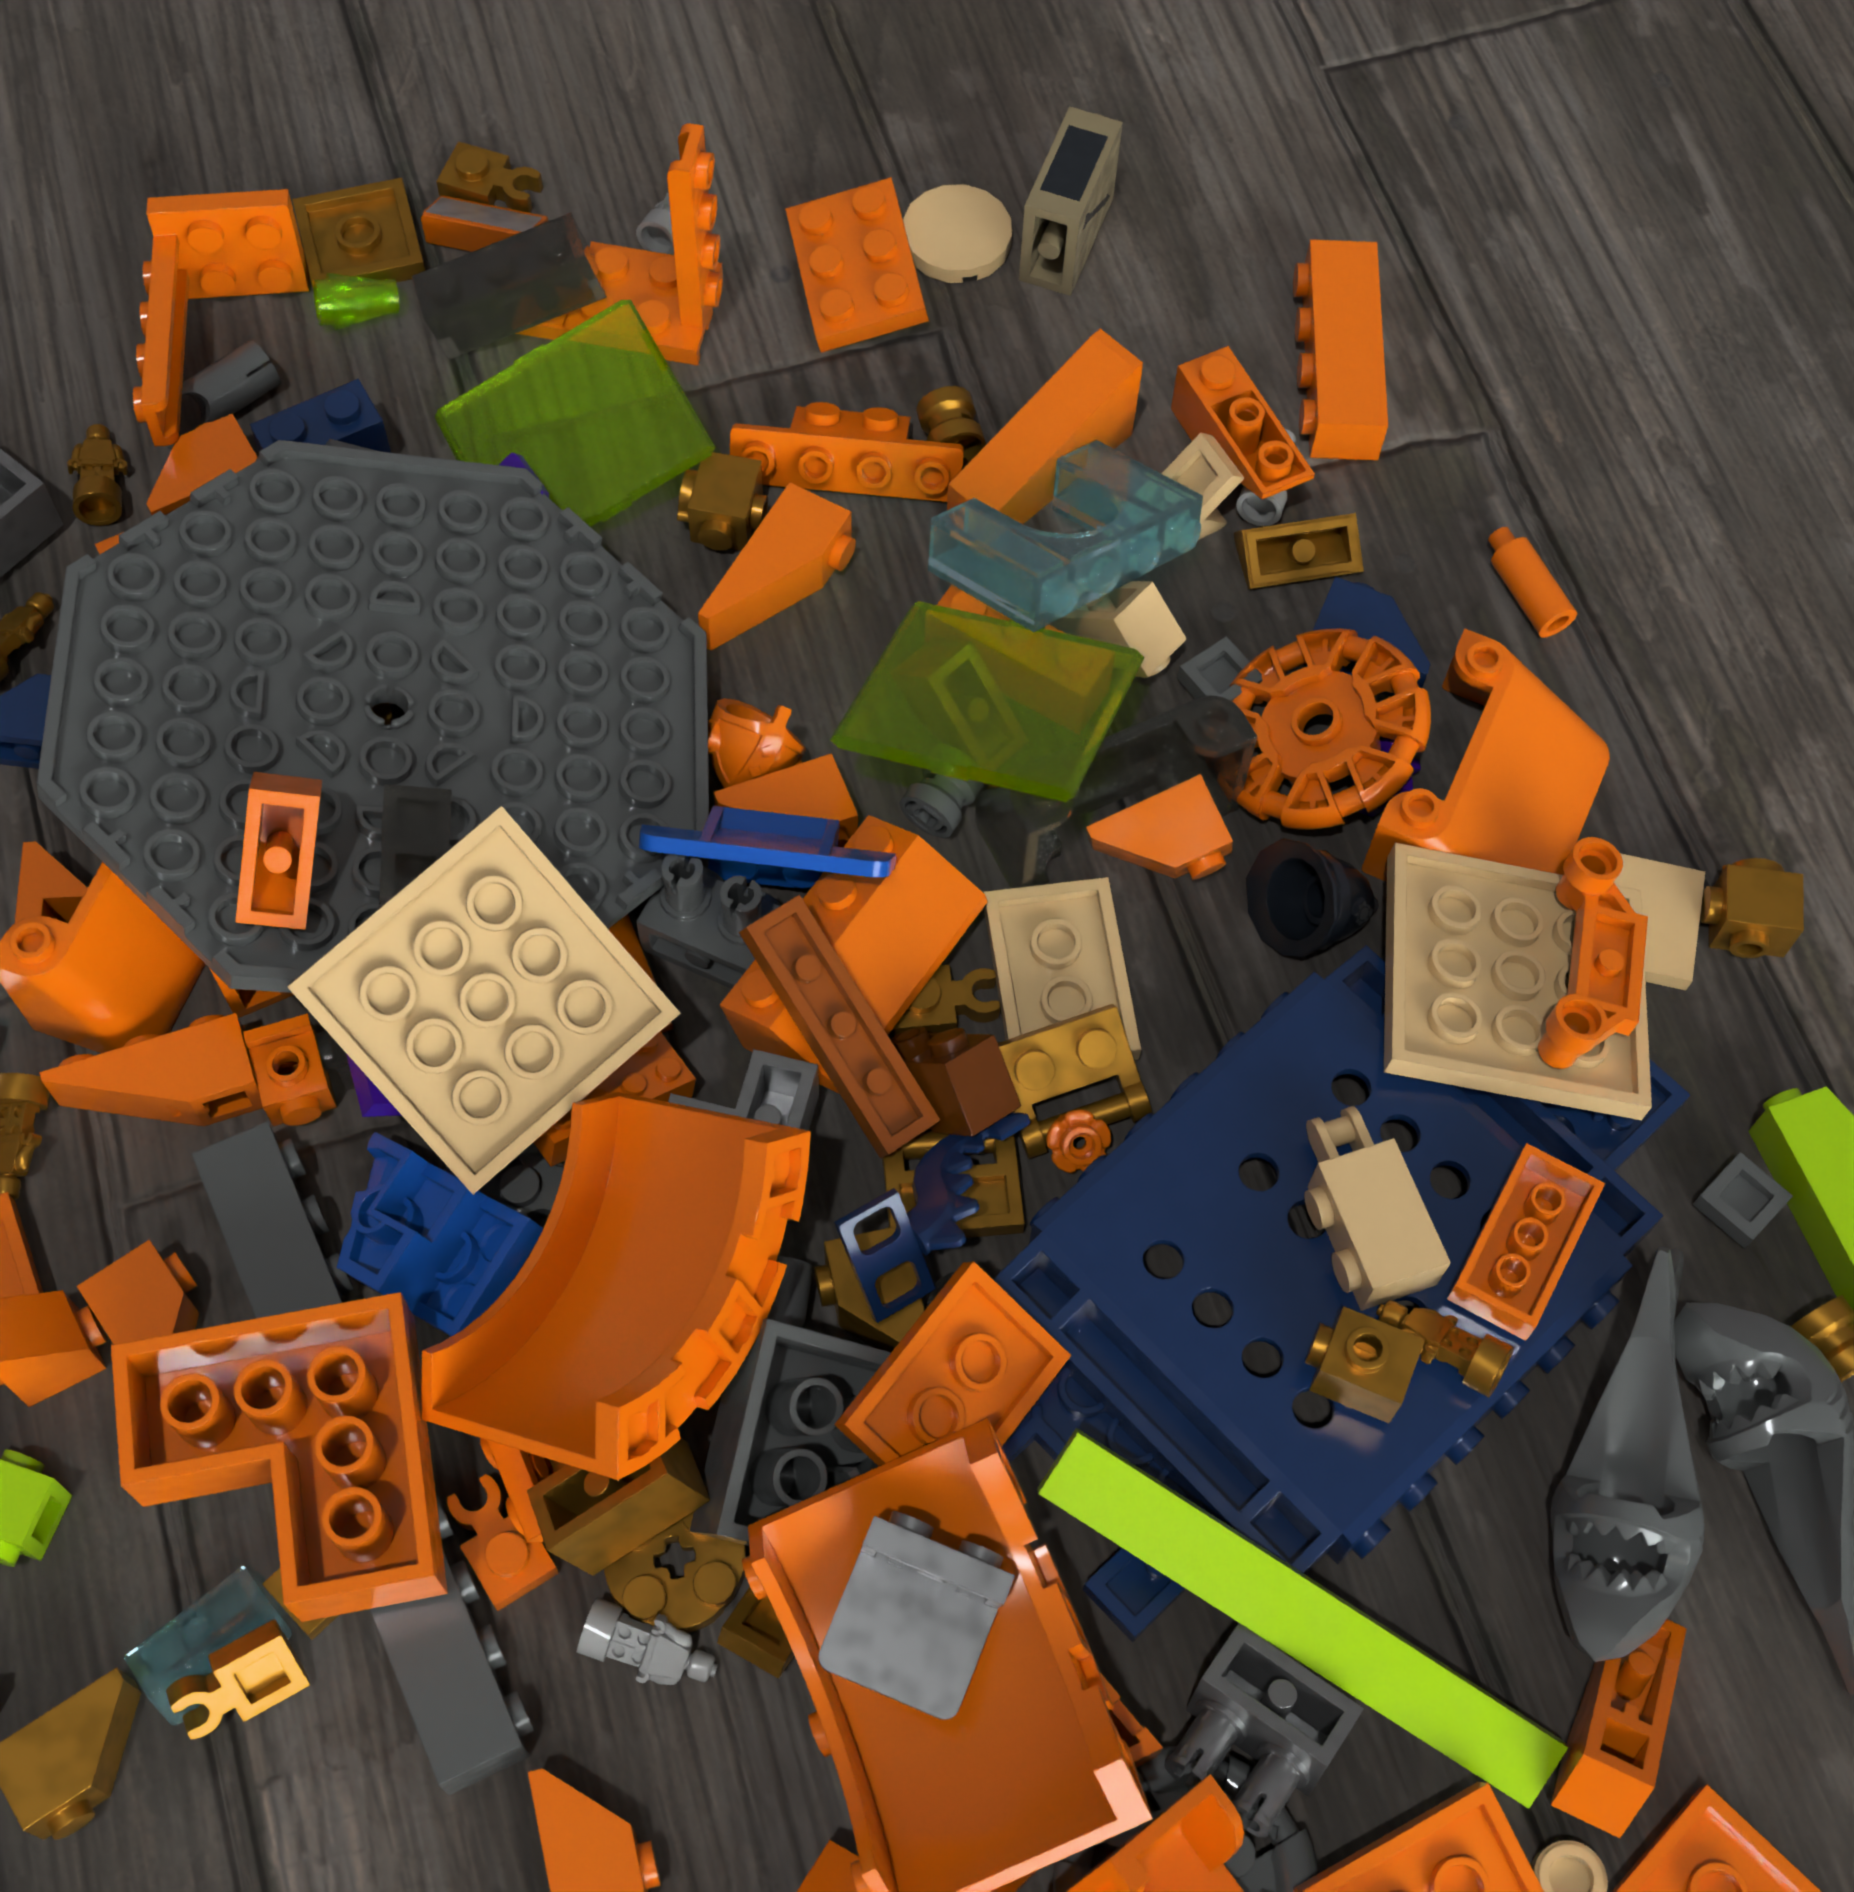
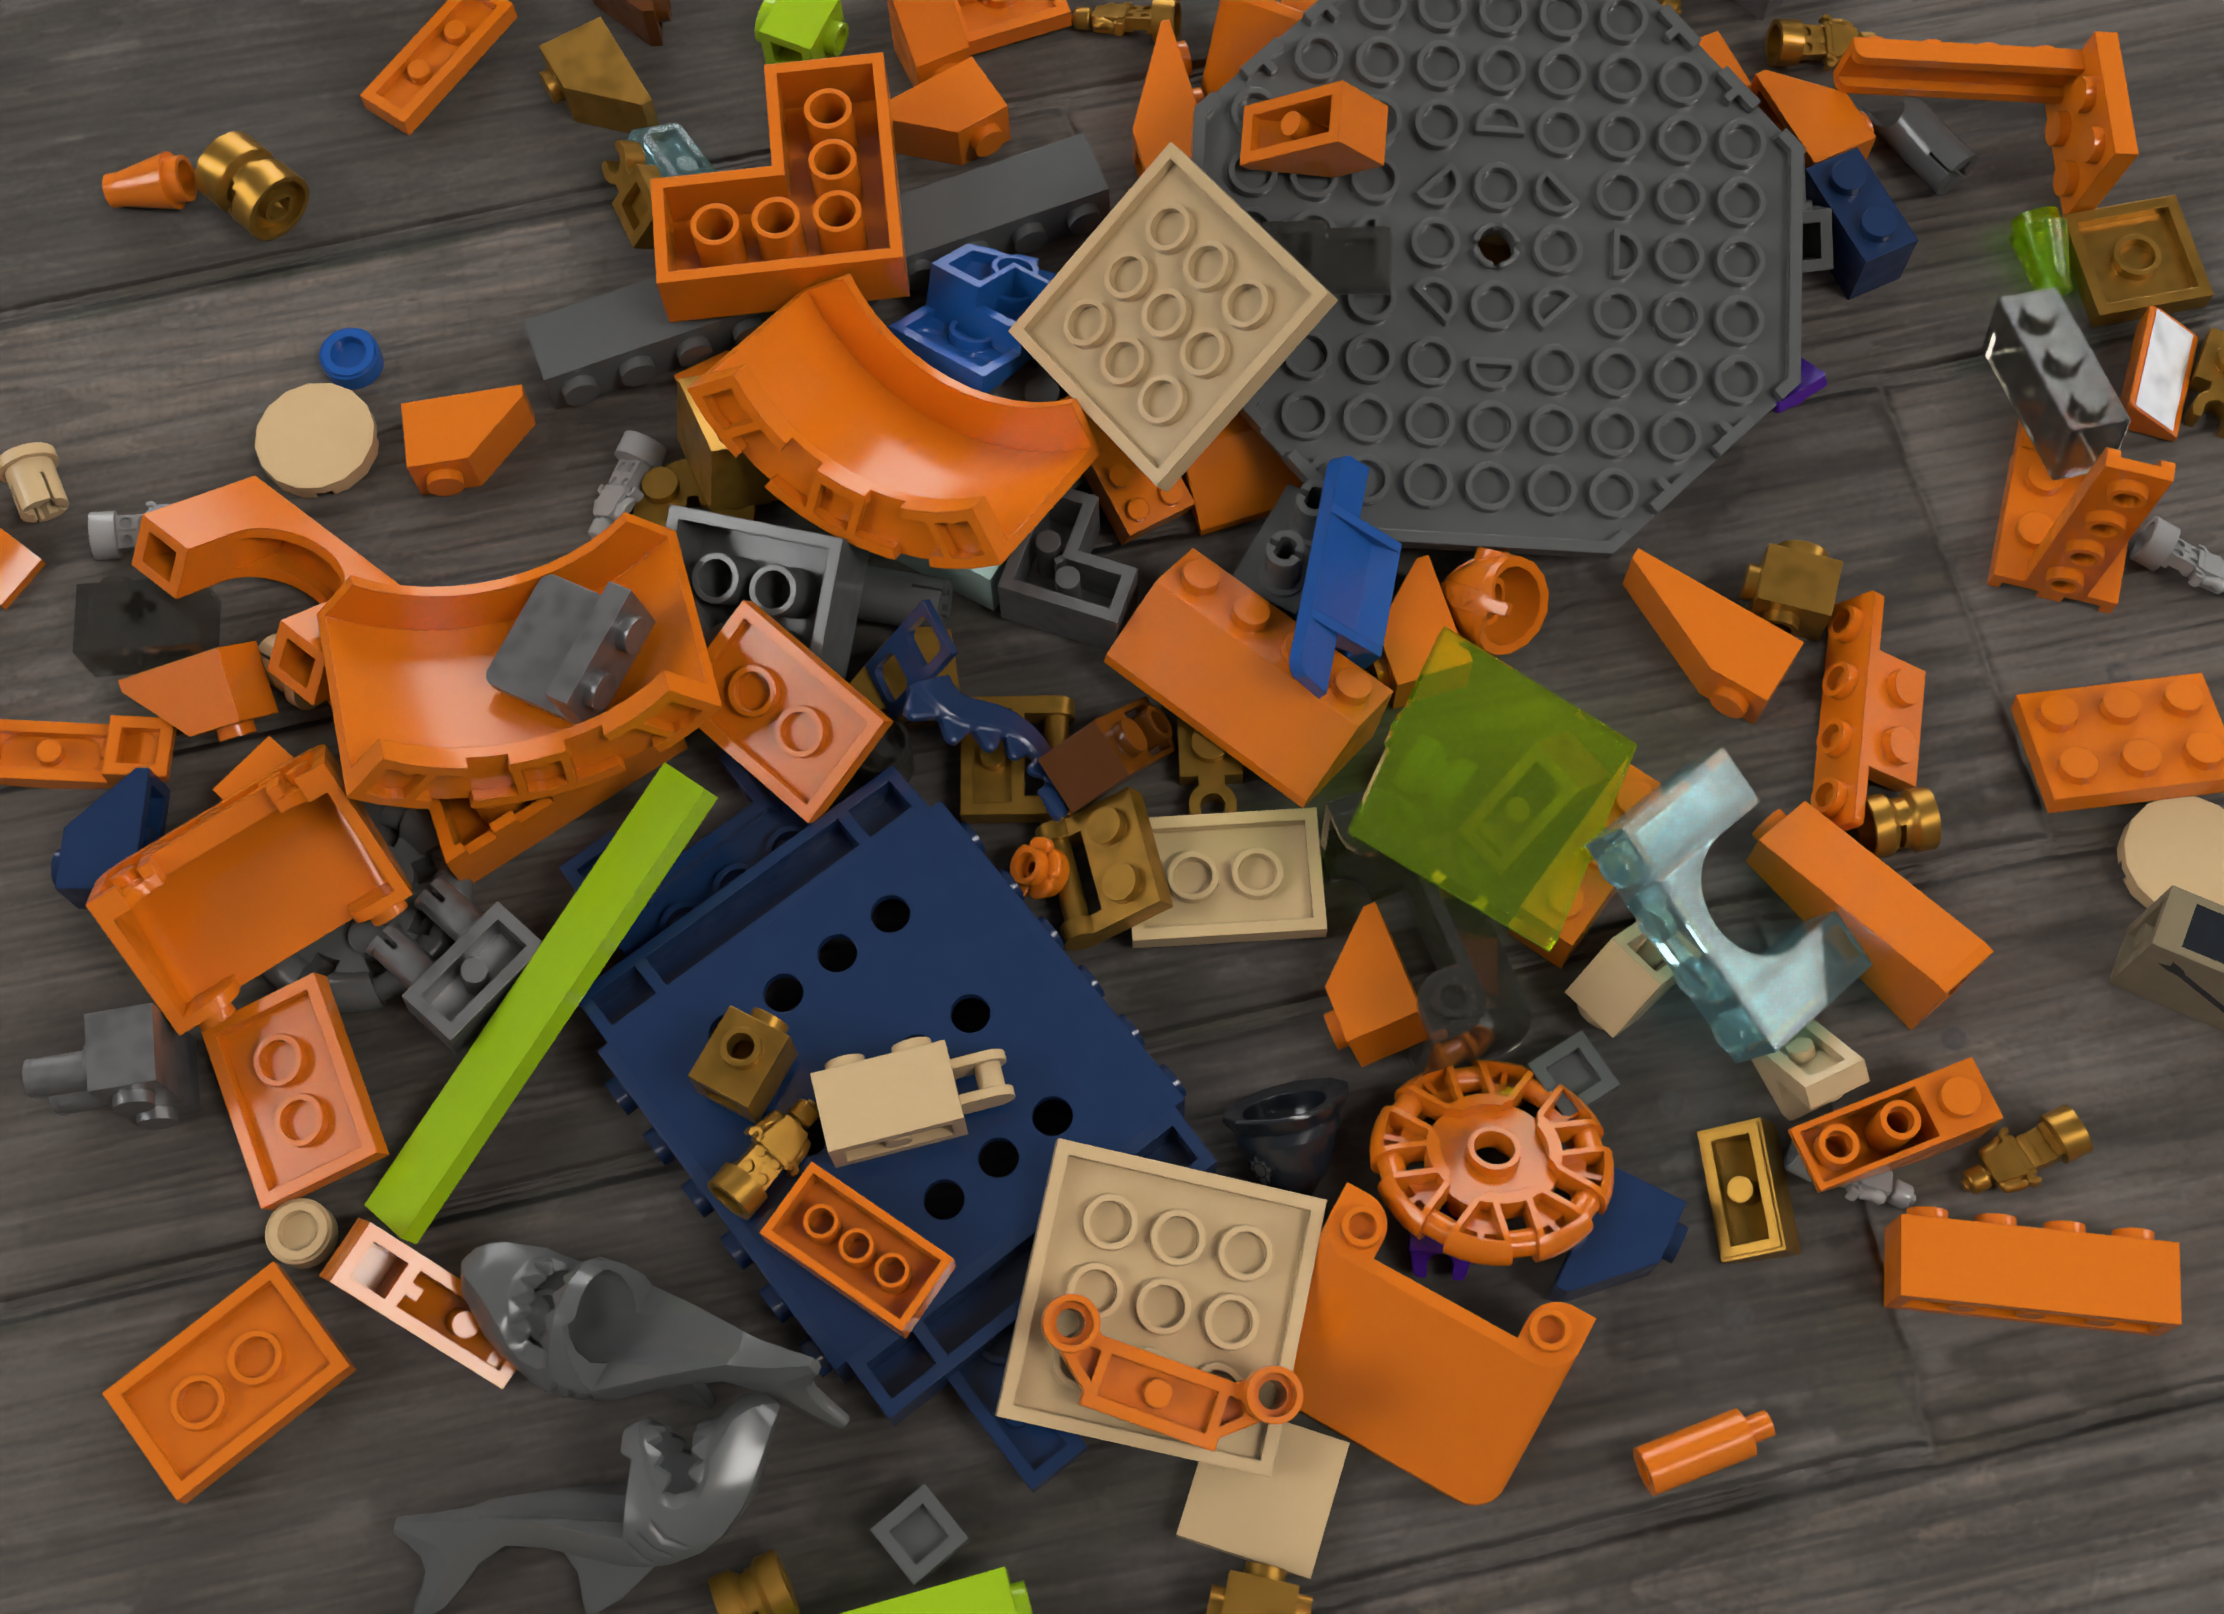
camera: 100 degrees right, 5 degrees up
(587, 415) = (1884, 453): clear neon green piece -> none
(839, 1026) = (1152, 638): dark orange plate -> none
(1221, 327) = (2014, 1162): none -> pearl gold piece

